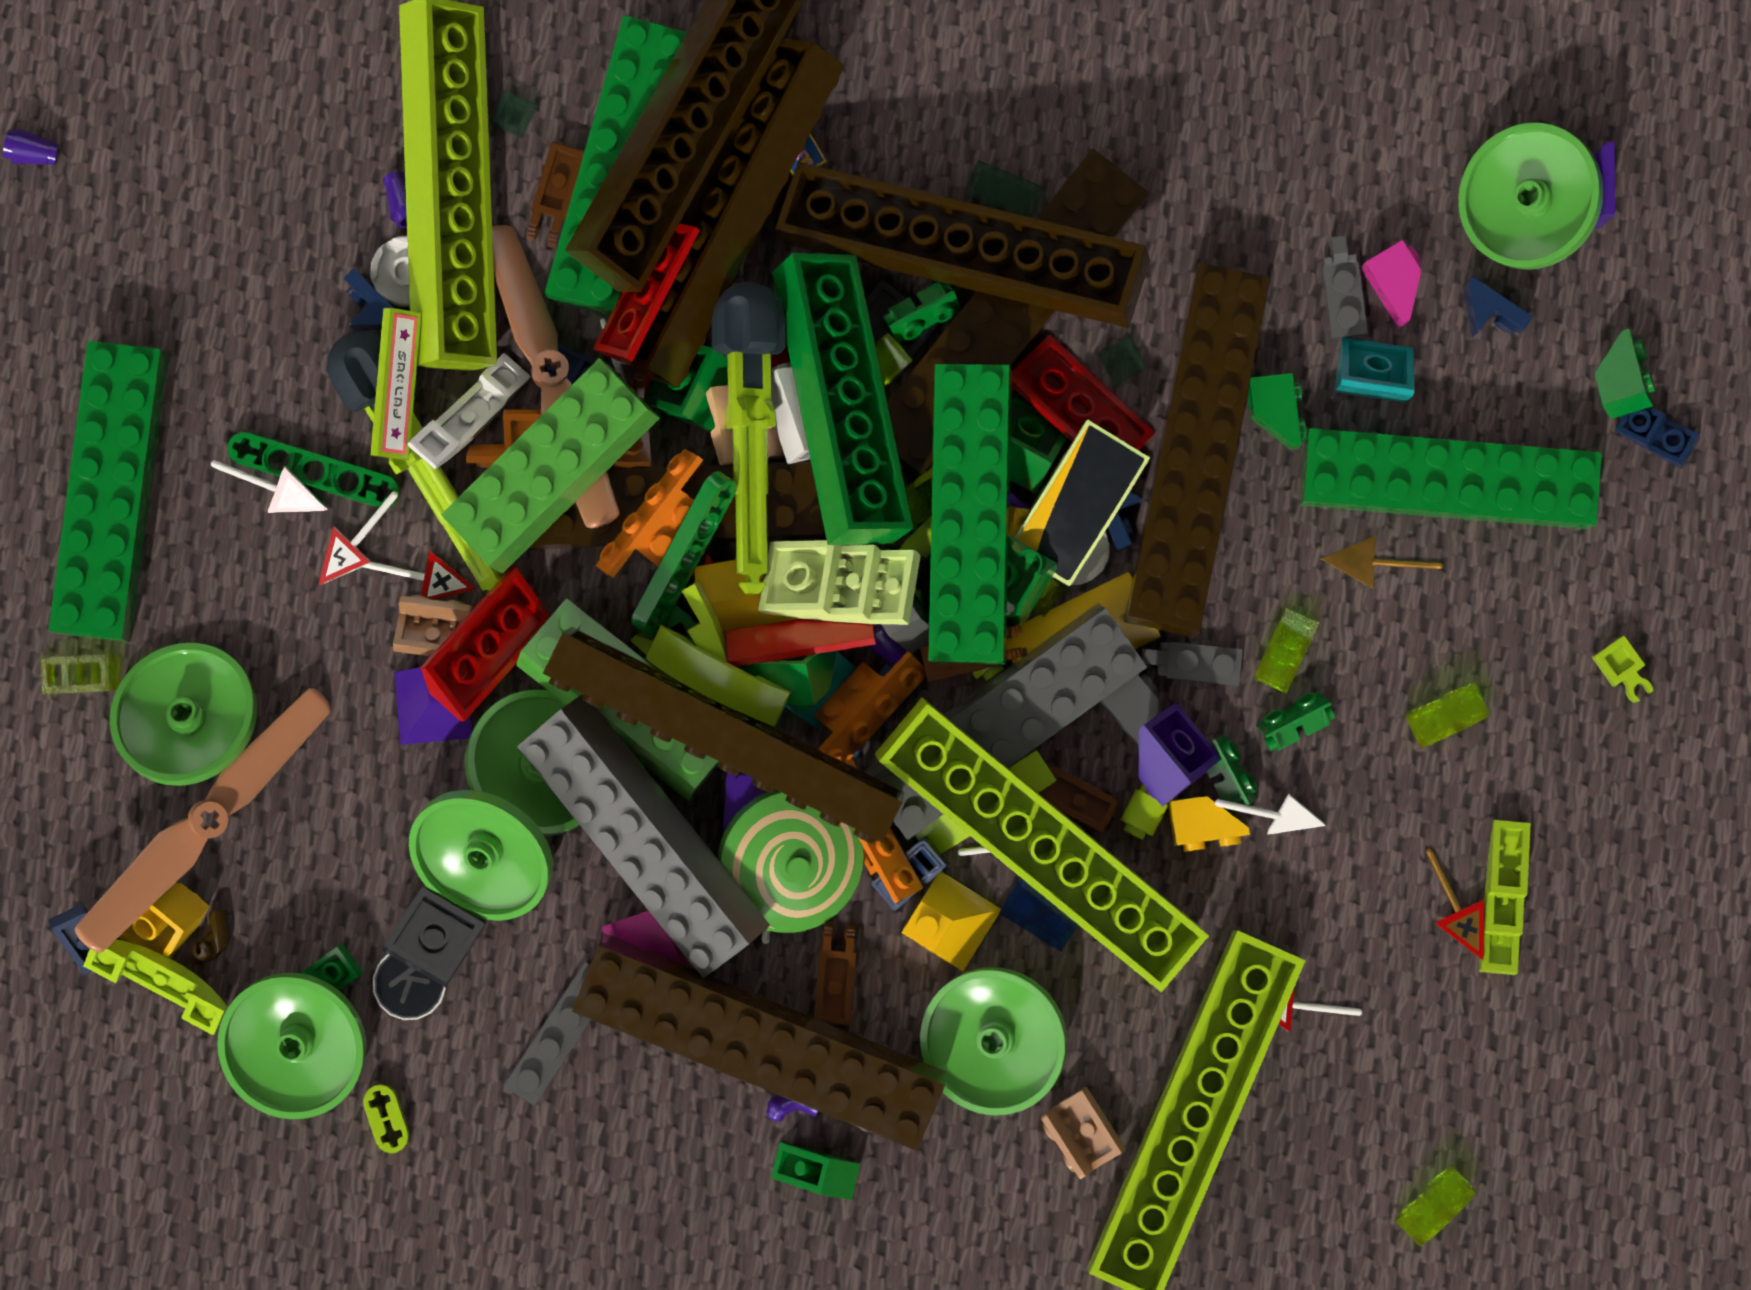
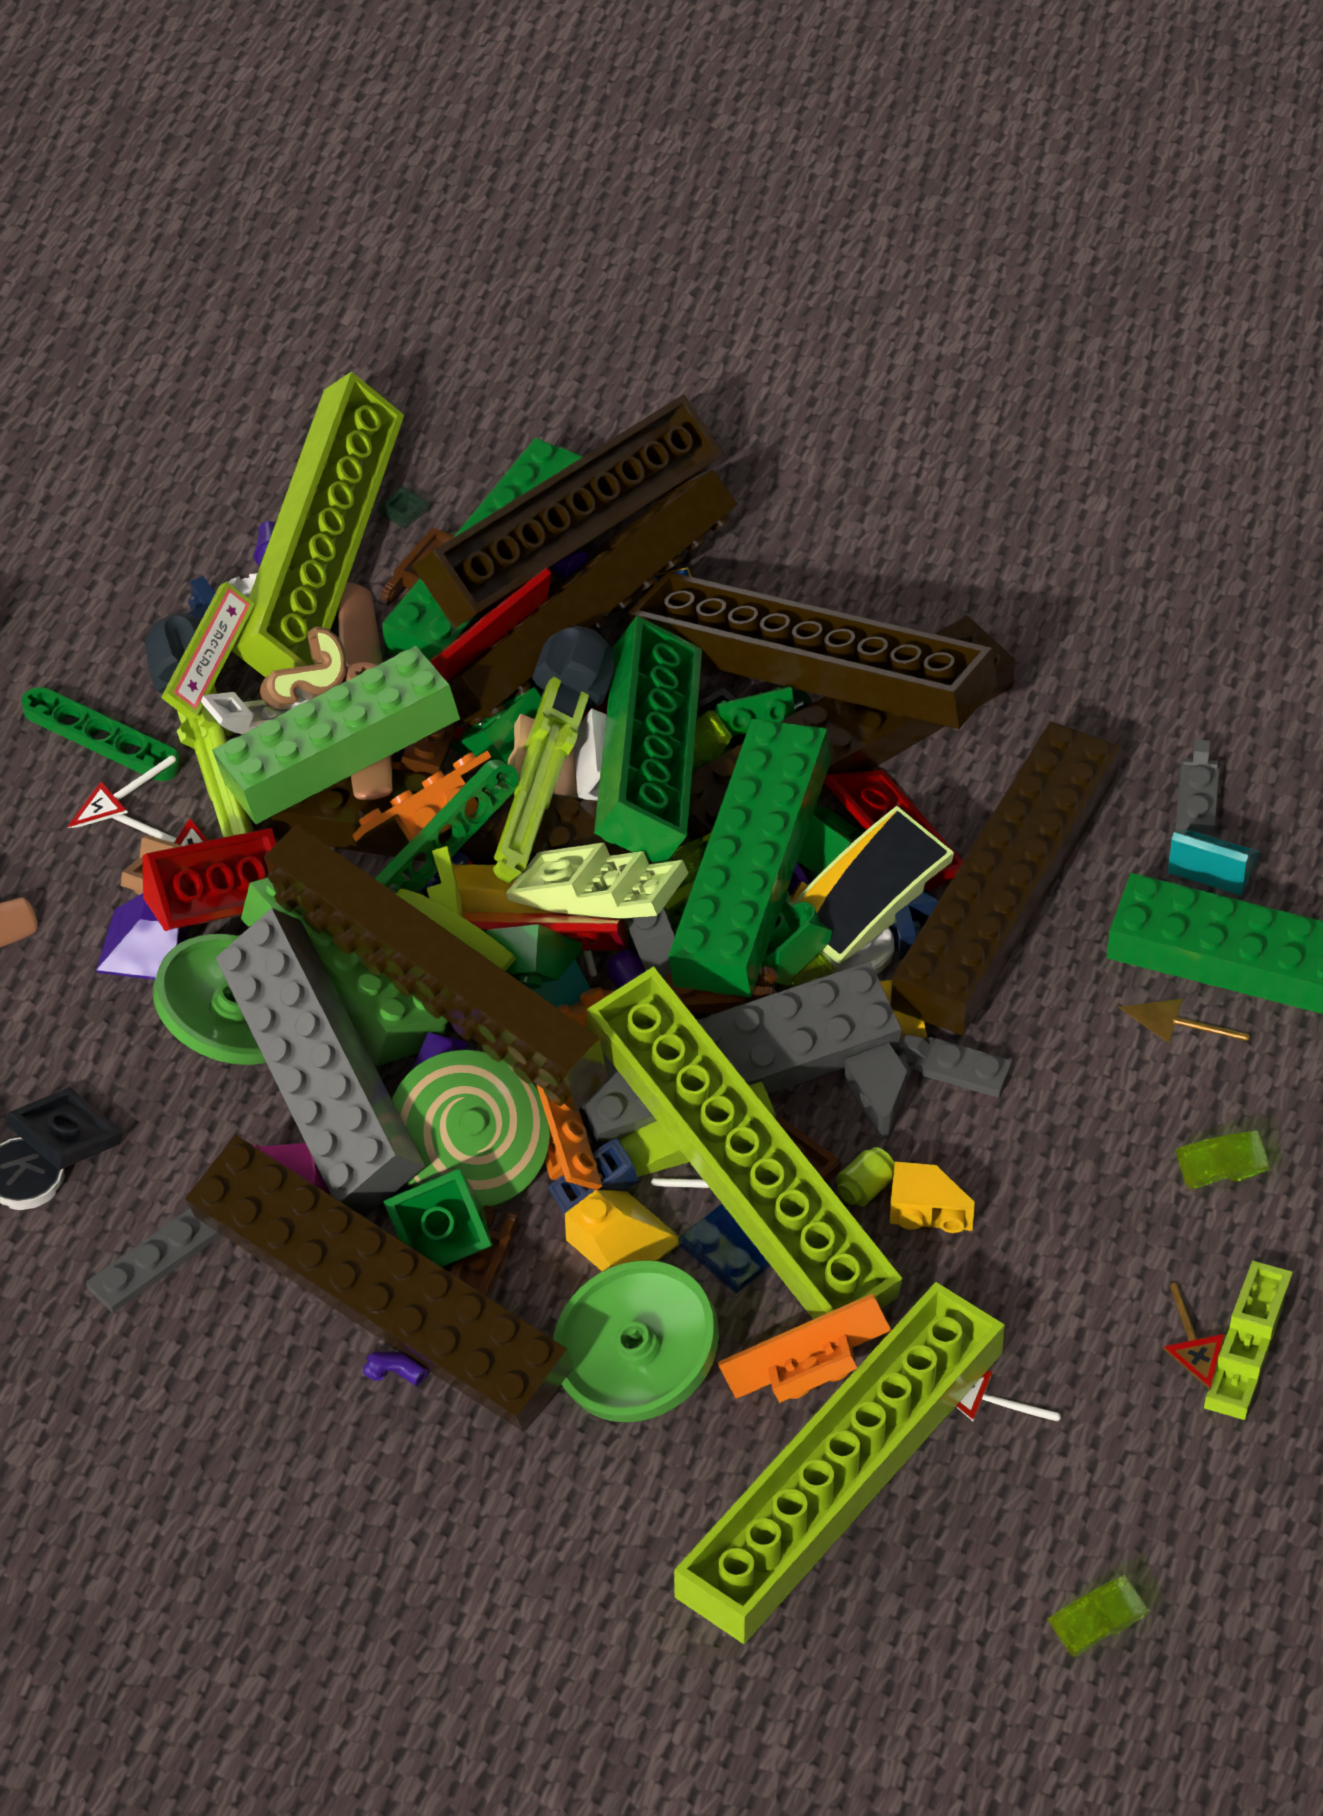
camera: 20 degrees right, 35 degrees down
(289, 494) = (68, 746): piece -> none
(481, 854) = (142, 1051): bright green dish -> none
(498, 382) = (285, 686): none -> medium nougat animal
(797, 967) = (441, 1219): none -> green slope
(815, 1171) = (401, 1428): green slope -> none
(1082, 1133) = (709, 1456): medium nougat bracket -> none
(1122, 361) = (951, 804): clear green tile -> none
(1146, 1030) = (807, 1353): none -> orange bracket
(1173, 754) = (908, 1118): dark purple slope -> none
(1236, 784) = (963, 1150): green hinge -> none
(1274, 408) = (1099, 863): green slope -> none
(1286, 650) = (1055, 1070): clear neon green slope -> none
(1289, 817) = (1024, 1218): white piece -> none
(1310, 711) = (1068, 1128): green hinge -> none
(1395, 280) = (1252, 784): dark pink slope -> none

